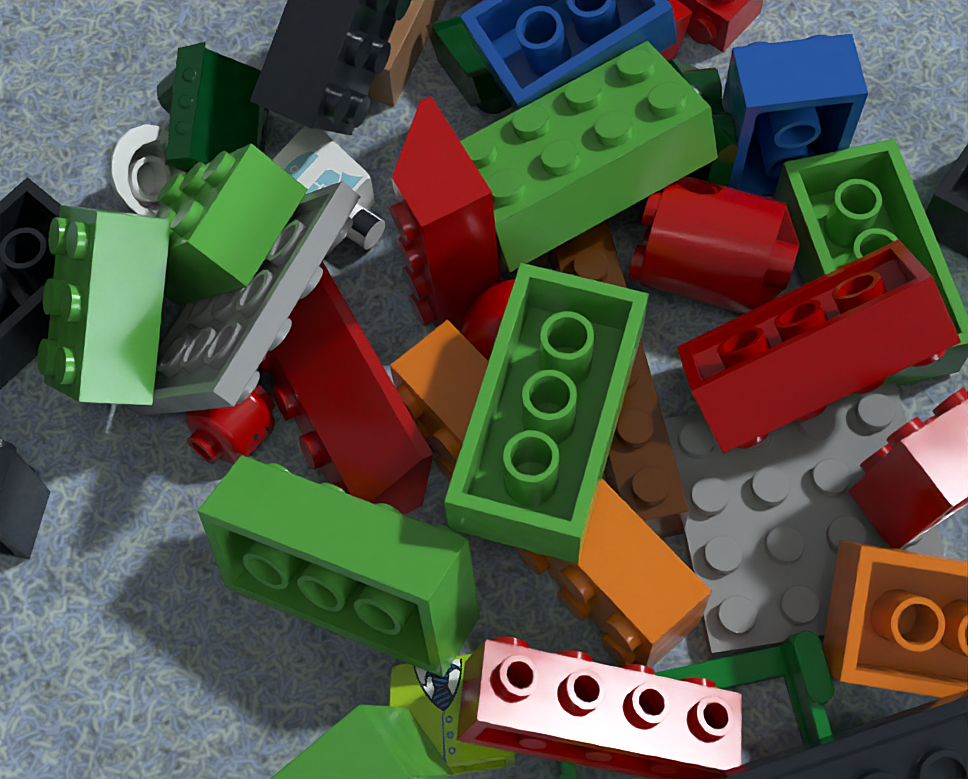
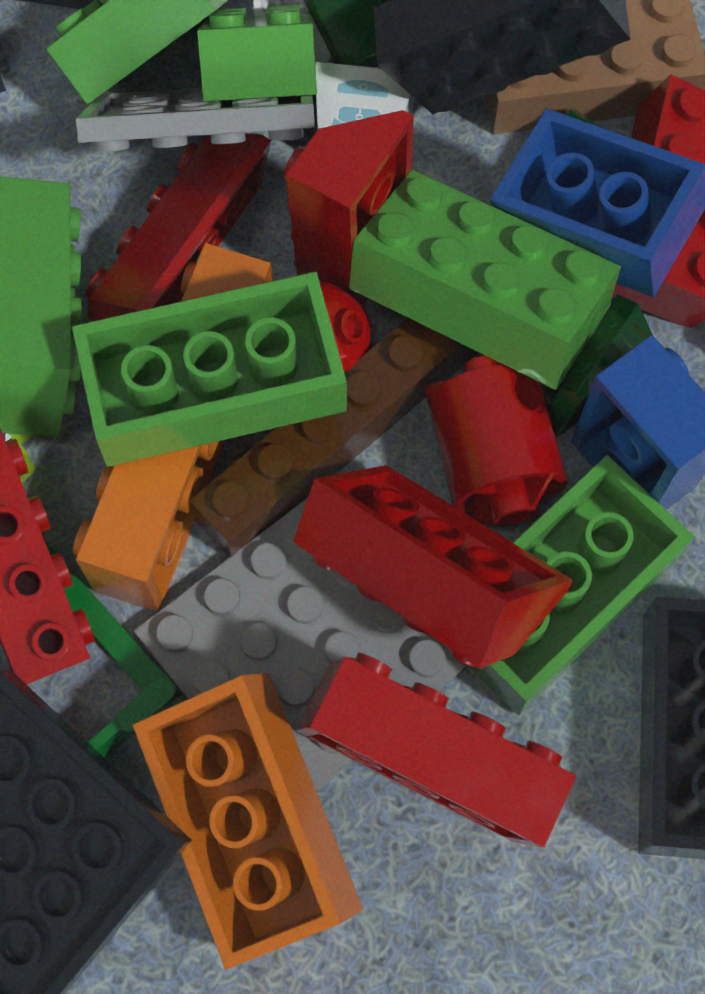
camera: 55 degrees right, 5 degrees up
(231, 430) = (126, 176): red head -> none

